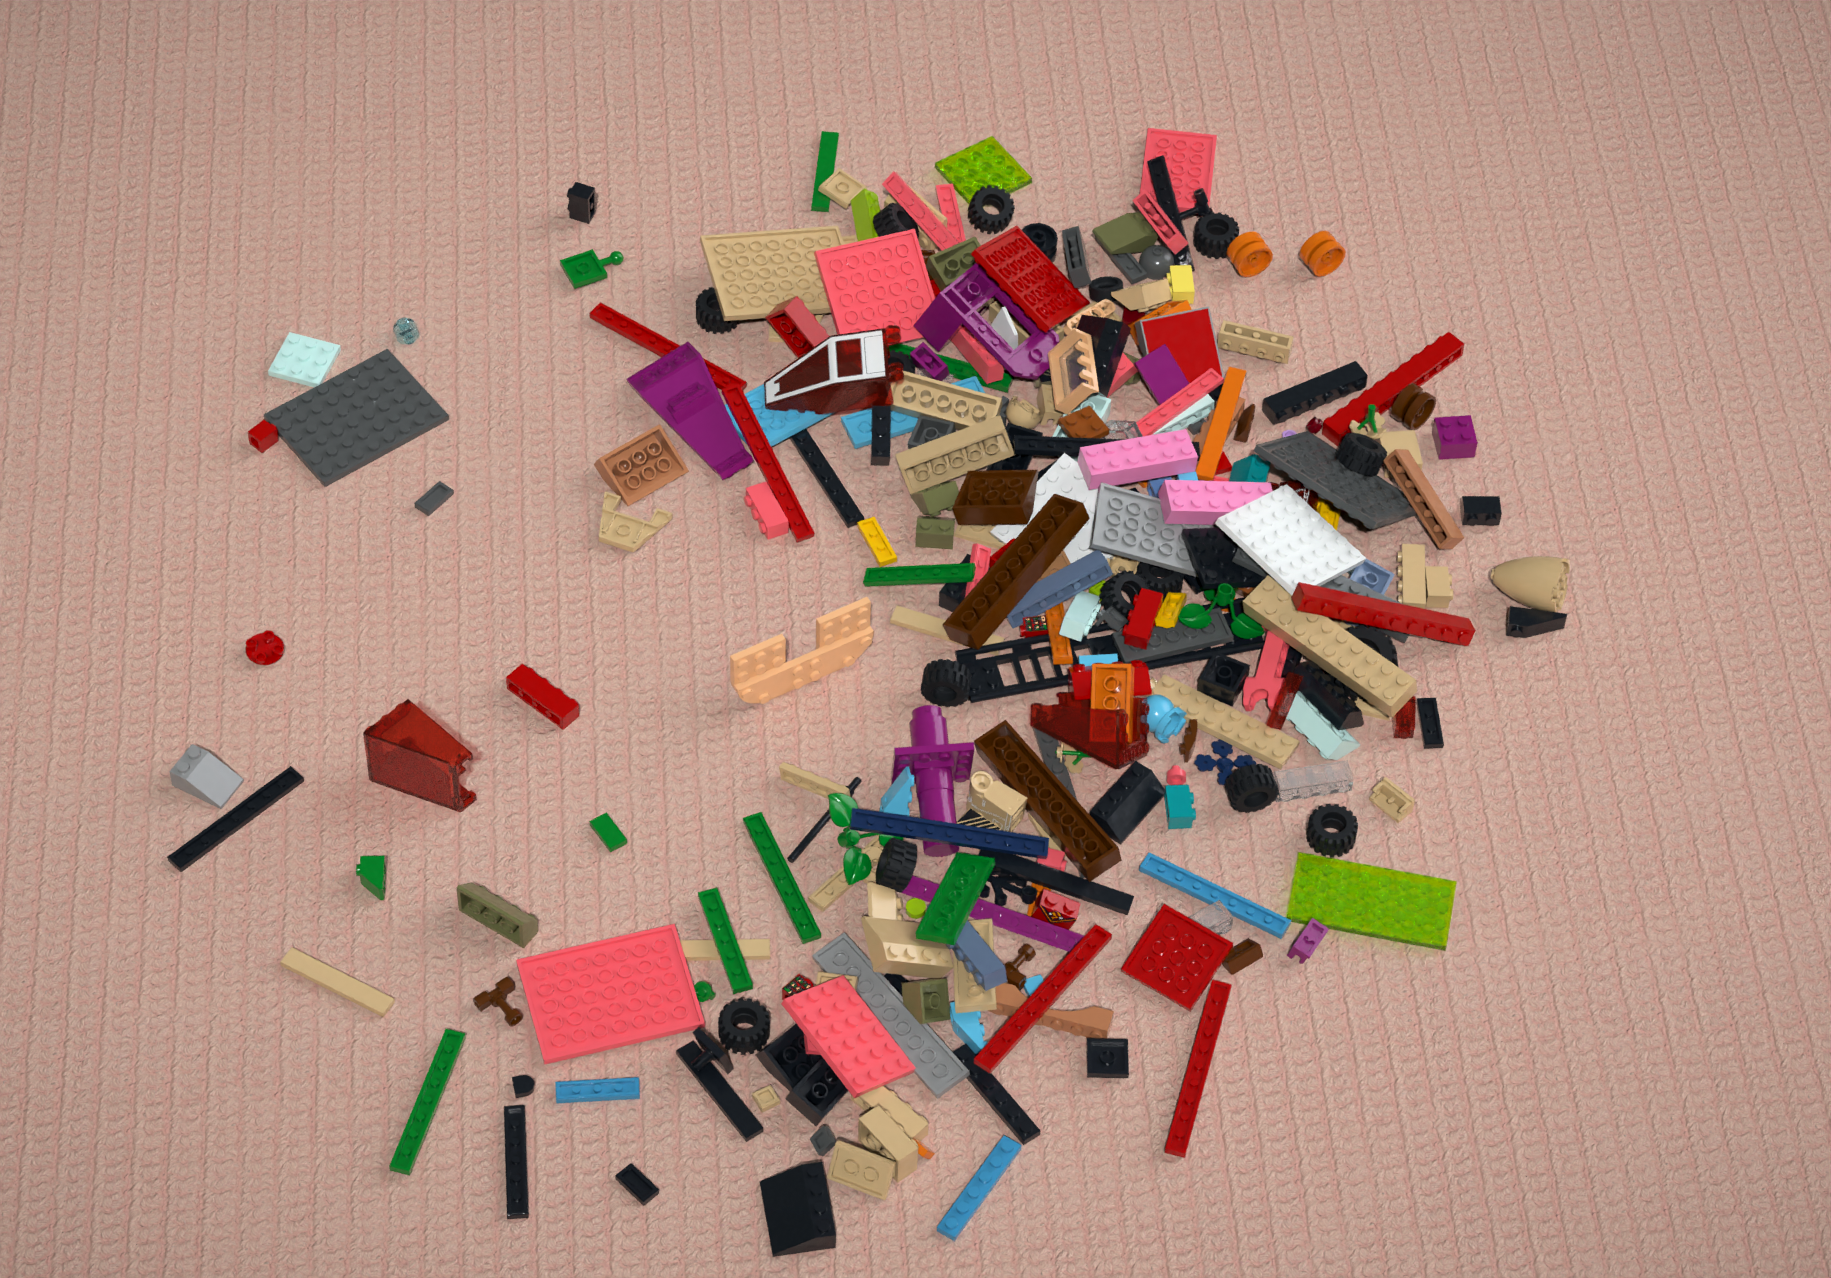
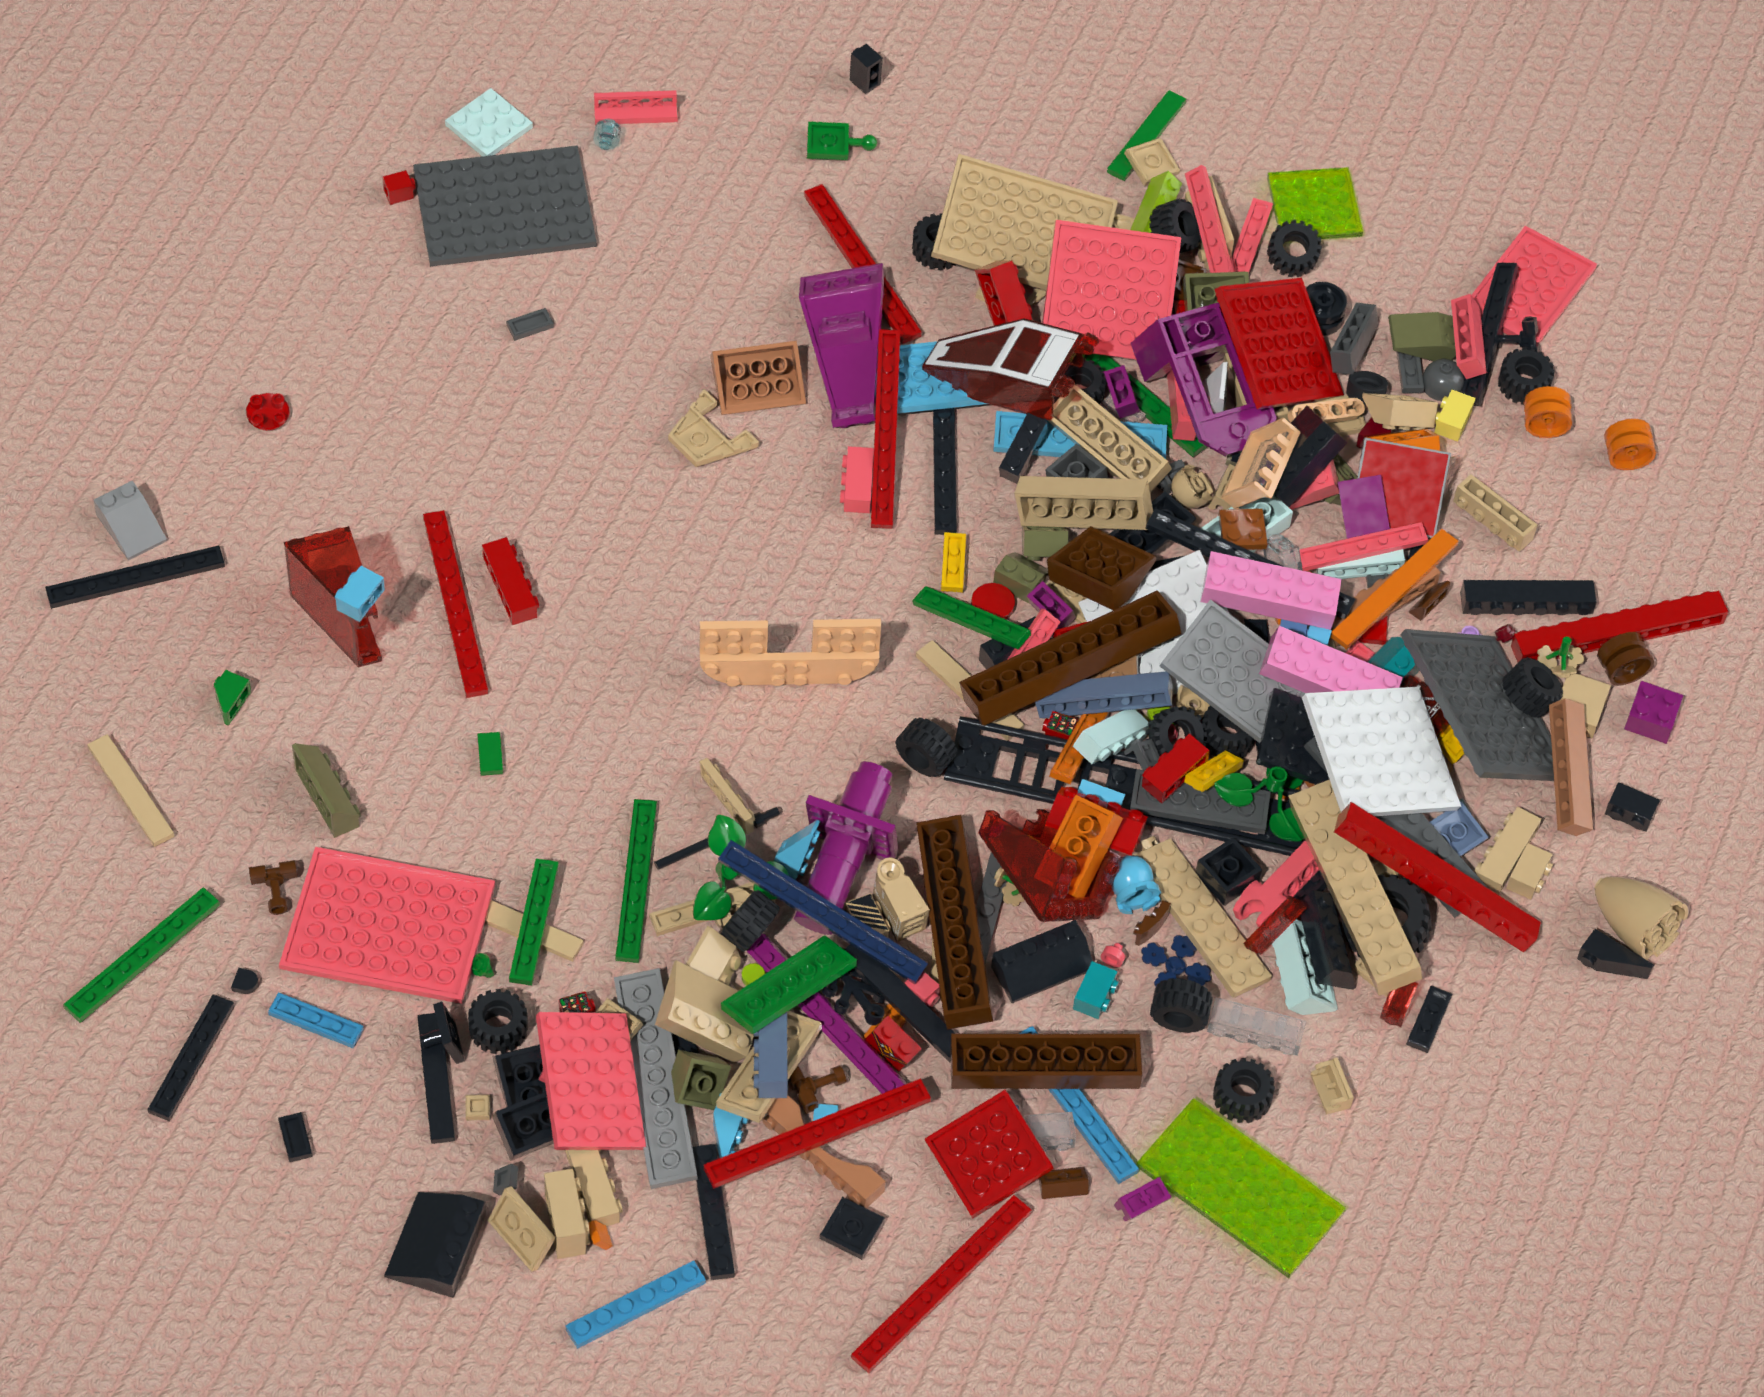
camera: 25 degrees right, 5 degrees up
(416, 305) = (635, 110): none -> coral fence
(452, 744) = (359, 593): none -> medium azure brick
(508, 732) = (455, 604): none -> red plate
(924, 555) = (994, 599): none -> red tile
(966, 537) = (1044, 598): none -> magenta brick
(1178, 871) = (1045, 1061): none -> reddish brown brick

